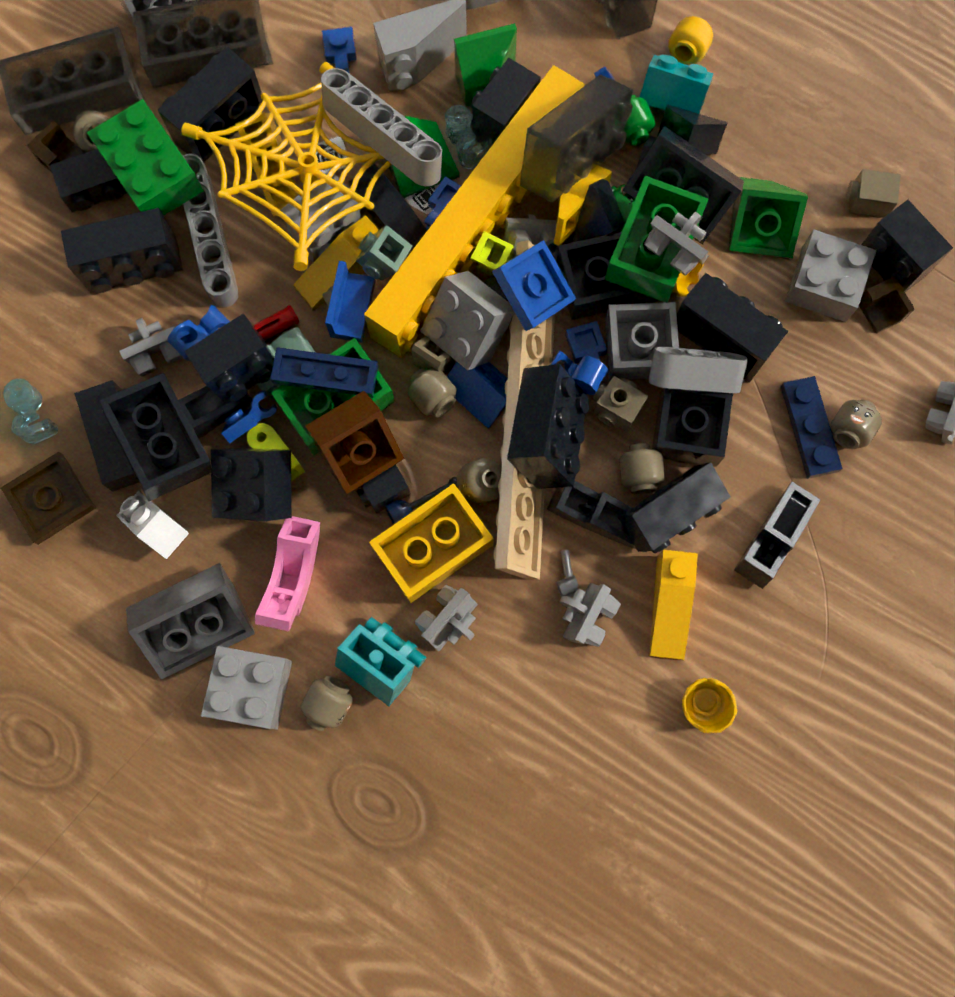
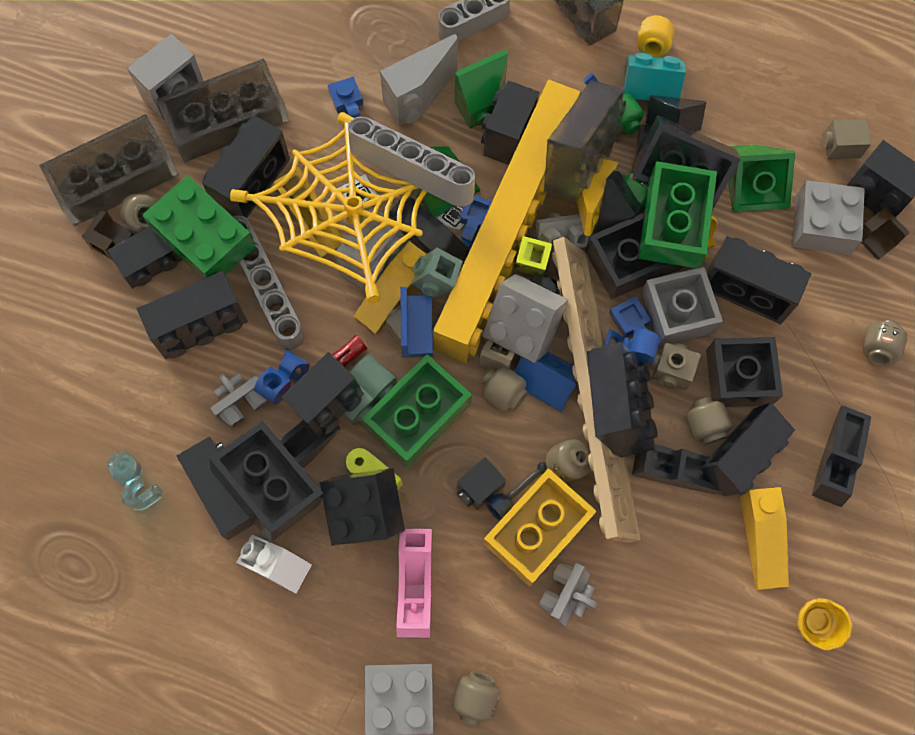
camera: 15 degrees left, 5 degrees down
(48, 498) = (169, 559): dark brown plate -> none
(188, 621) = (329, 648): flat silver slope -> none
(241, 422) = (338, 450): blue plate -> none
(324, 372) = (408, 390): dark blue plate -> none
(355, 442) = (451, 448): reddish brown brick -> none
(378, 660) = (515, 647): teal brick -> none
(459, 131) = (471, 151): clear light blue leg -> none
(534, 285) = (580, 276): blue plate -> none
(569, 585) = (670, 539): flat silver hand -> none
(583, 612) = (691, 561): light grey hips -> none
(690, 252) = (715, 219): light grey hips -> none
(697, 370) = (740, 323): light grey beam -> none
(811, 427) = (845, 353): dark blue plate -> none

